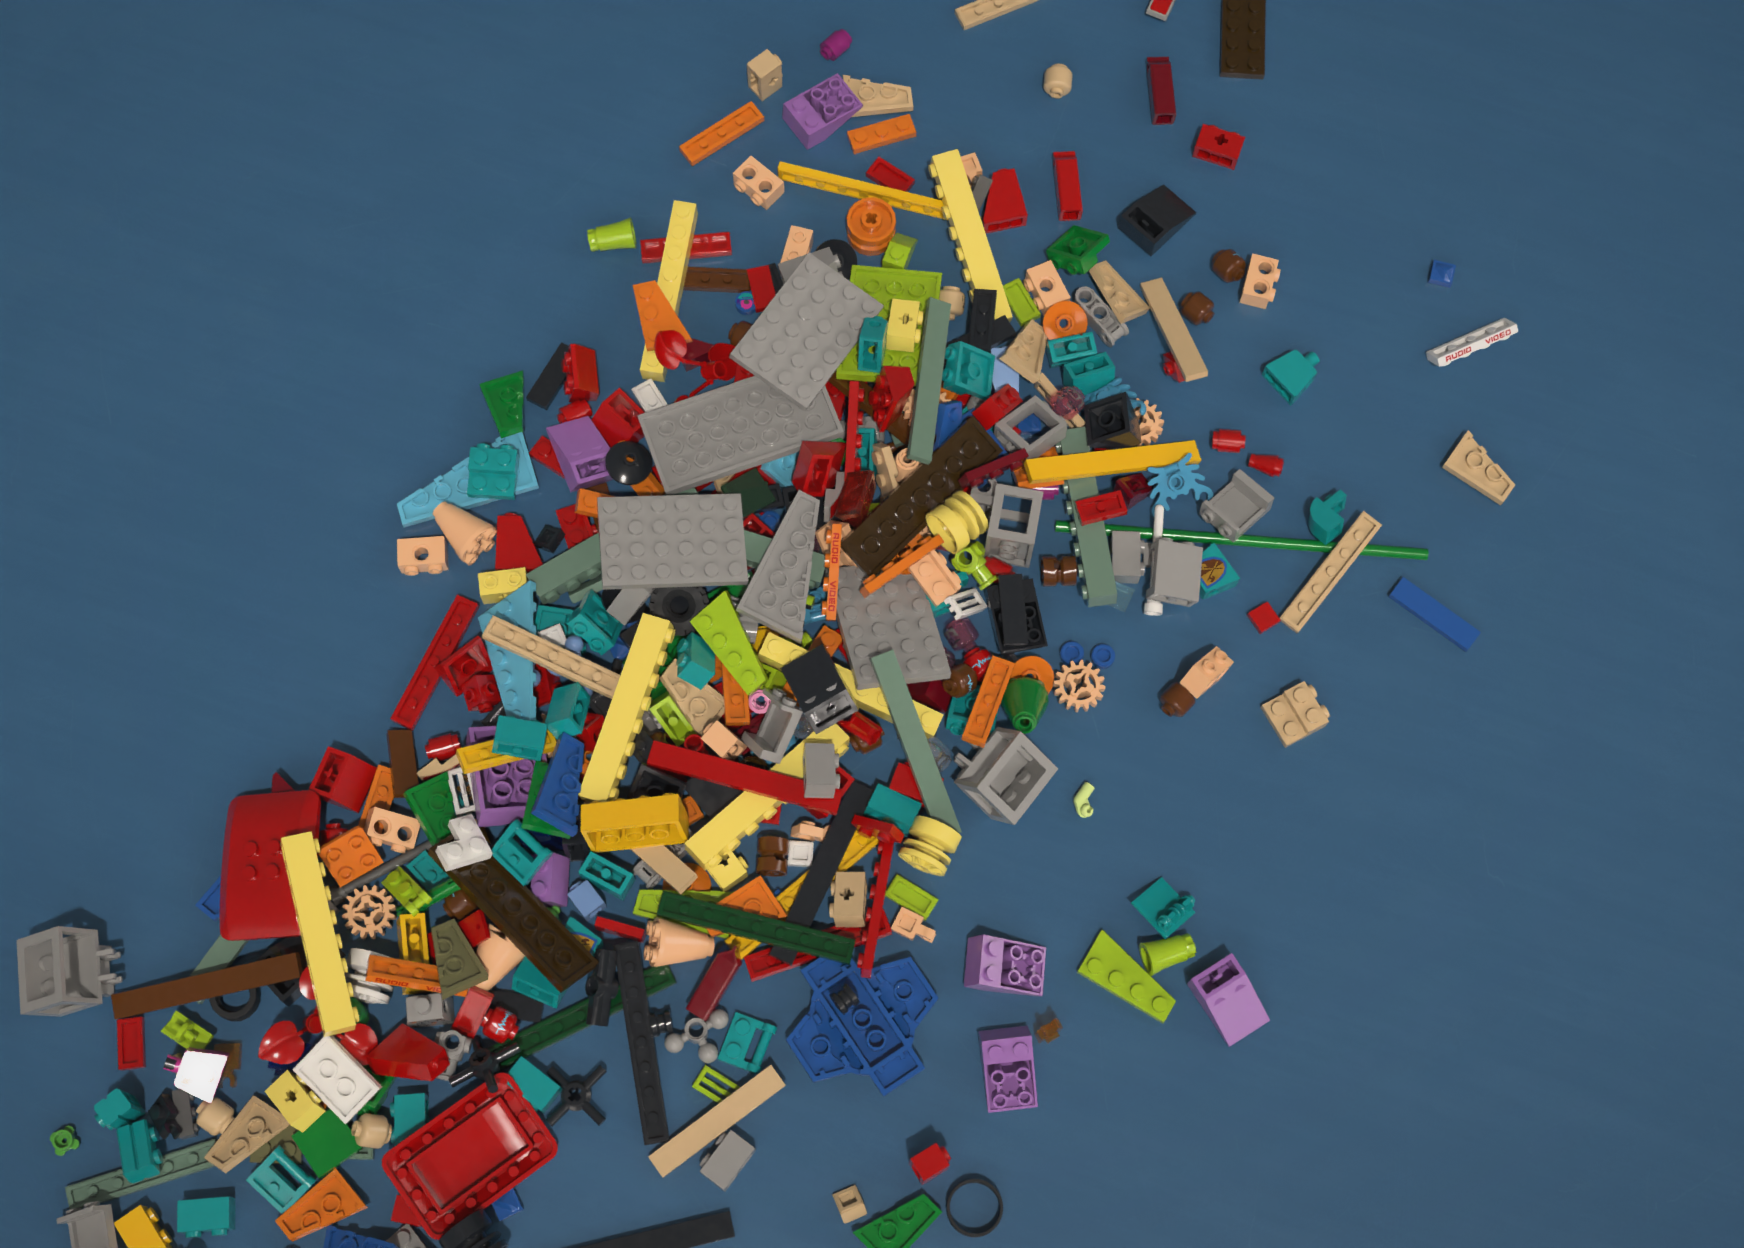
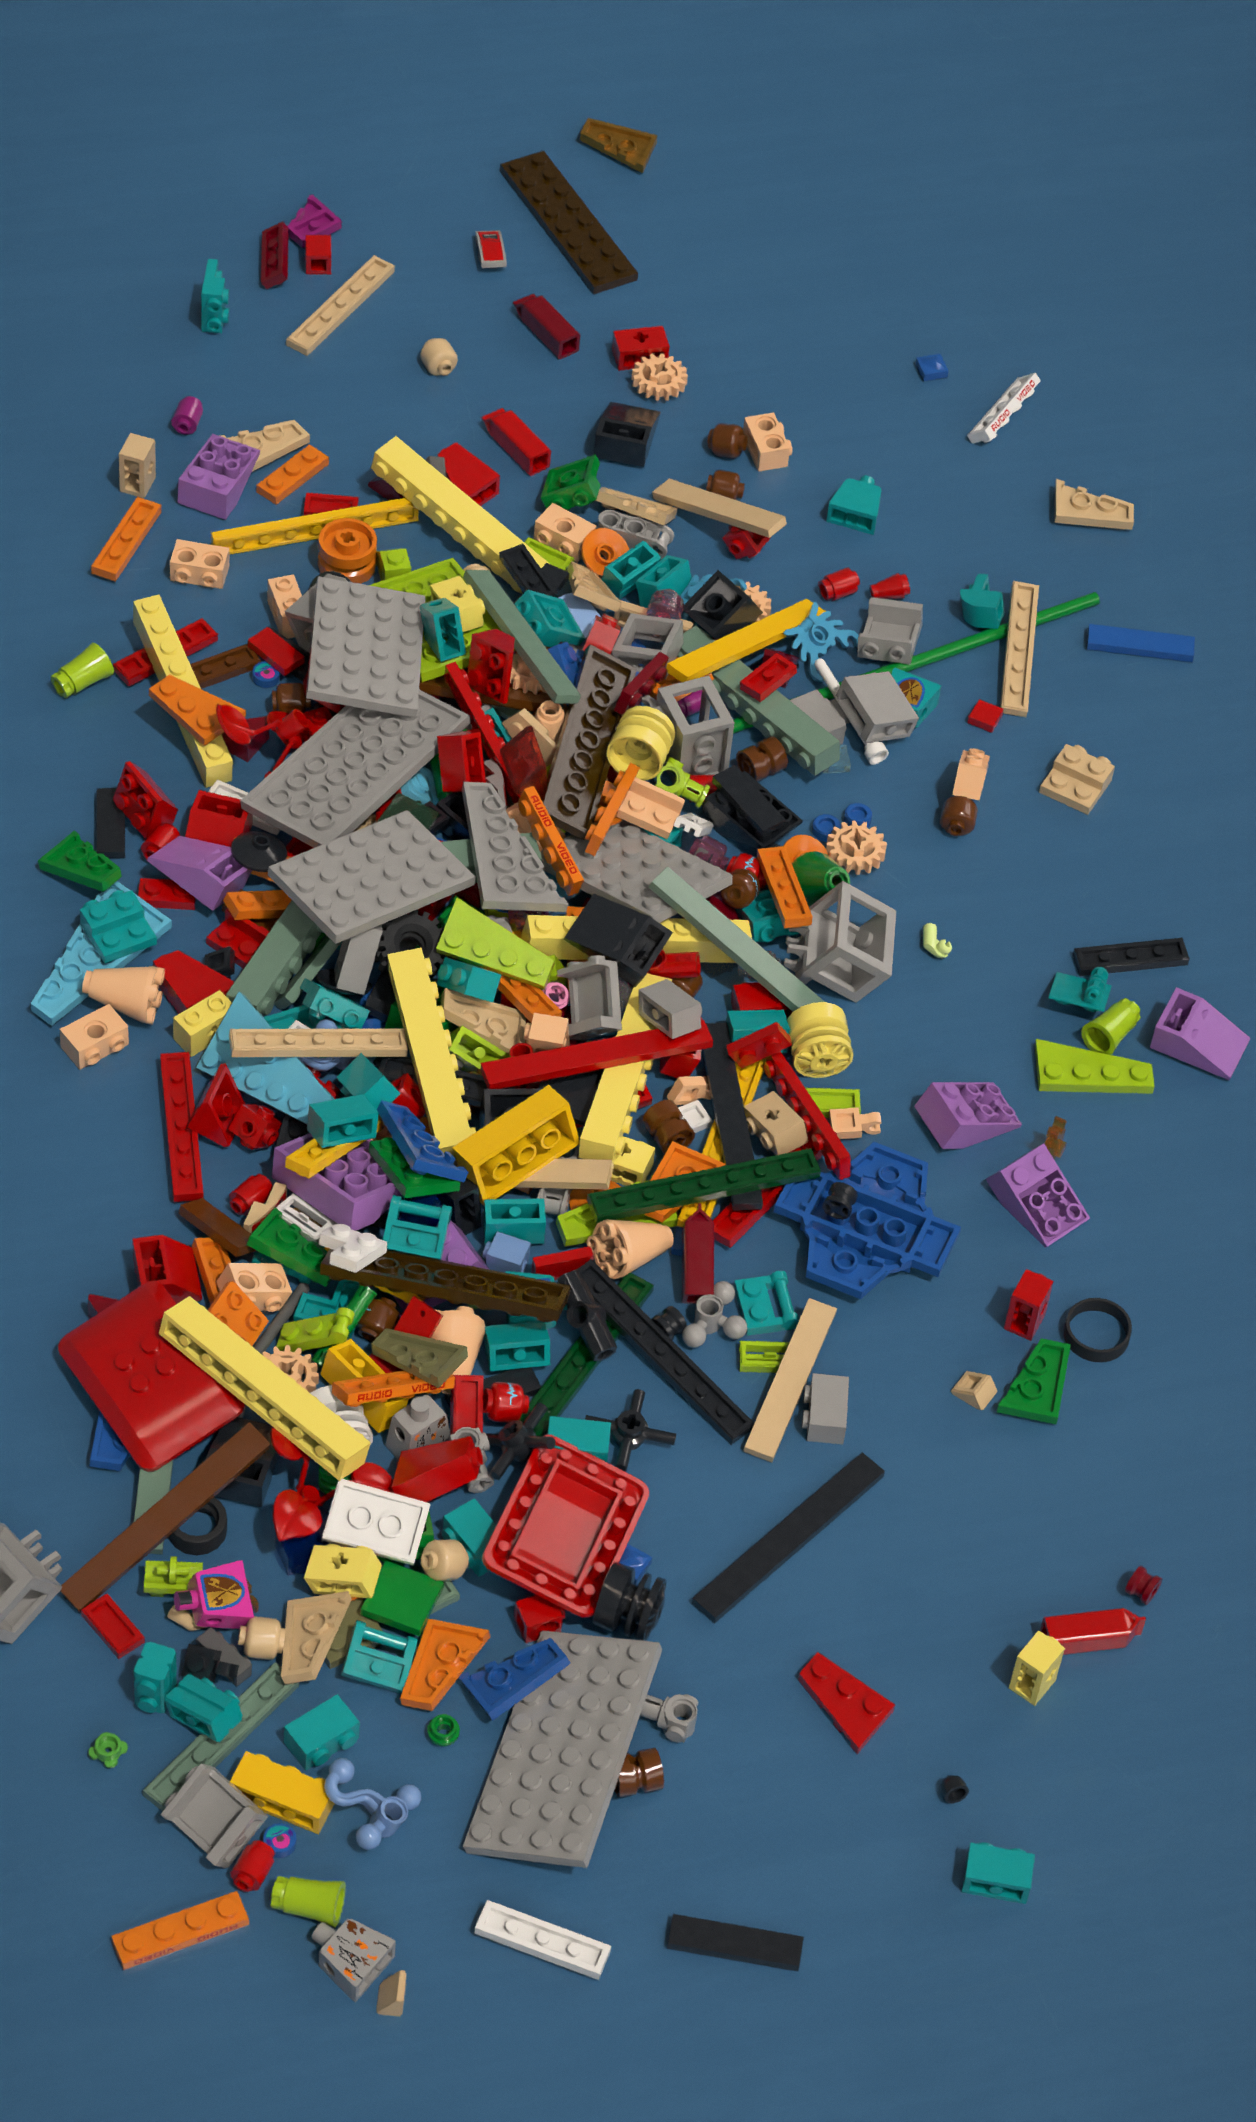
camera: 35 degrees left, 20 degrees down
(1215, 180) = (659, 377): none -> light nougat gear
(1229, 895) = (1132, 956): none -> black tile

